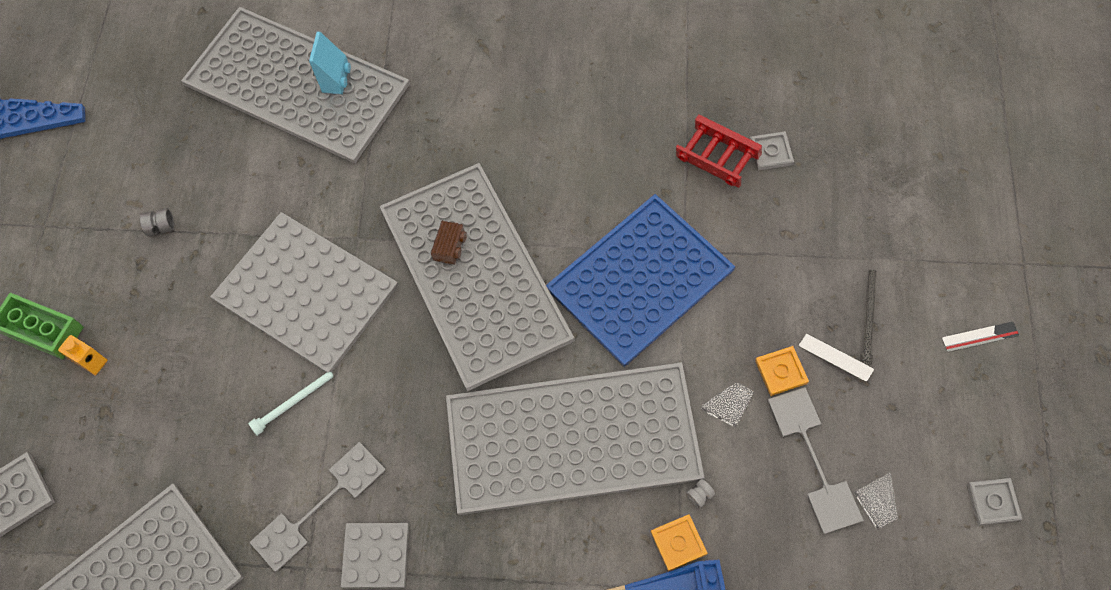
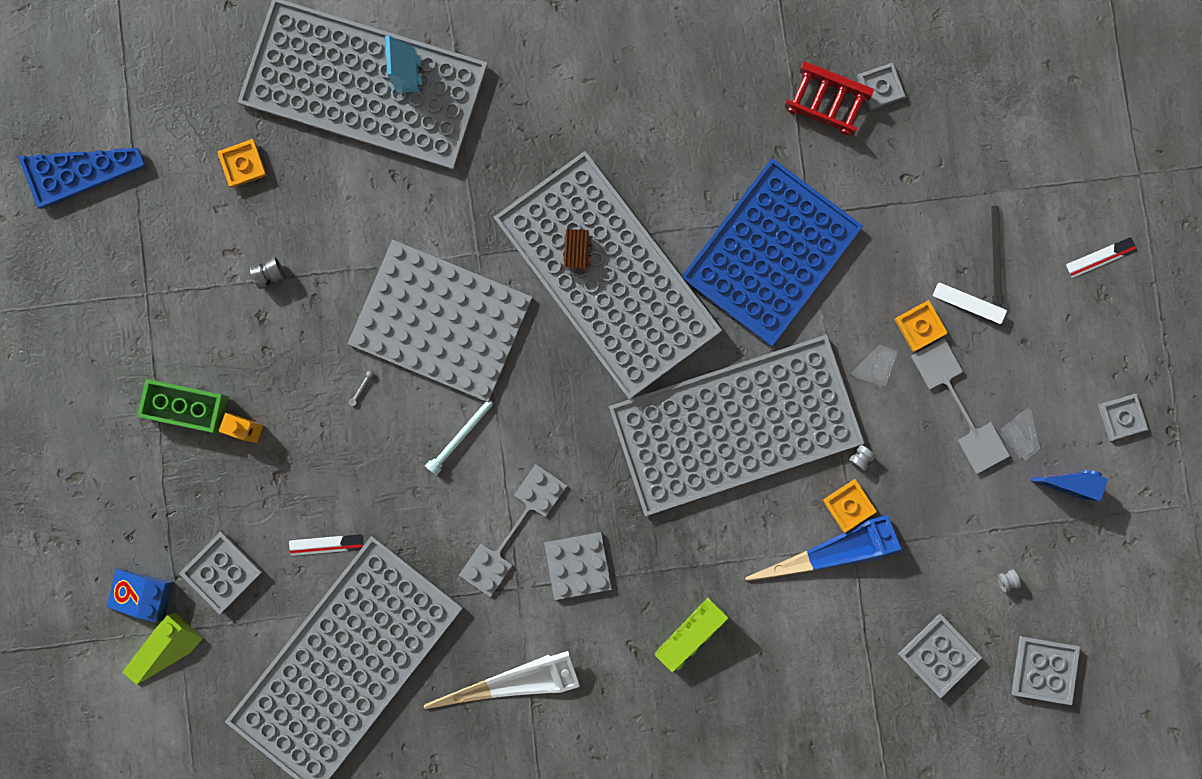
camera: 15 degrees left, 20 degrees up
(126, 487) = (325, 545): none -> sticker
(167, 130) = (242, 163): none -> light orange plate
(199, 352) = (353, 402): none -> light grey hinge
(935, 561) = (1082, 485): none -> blue slope

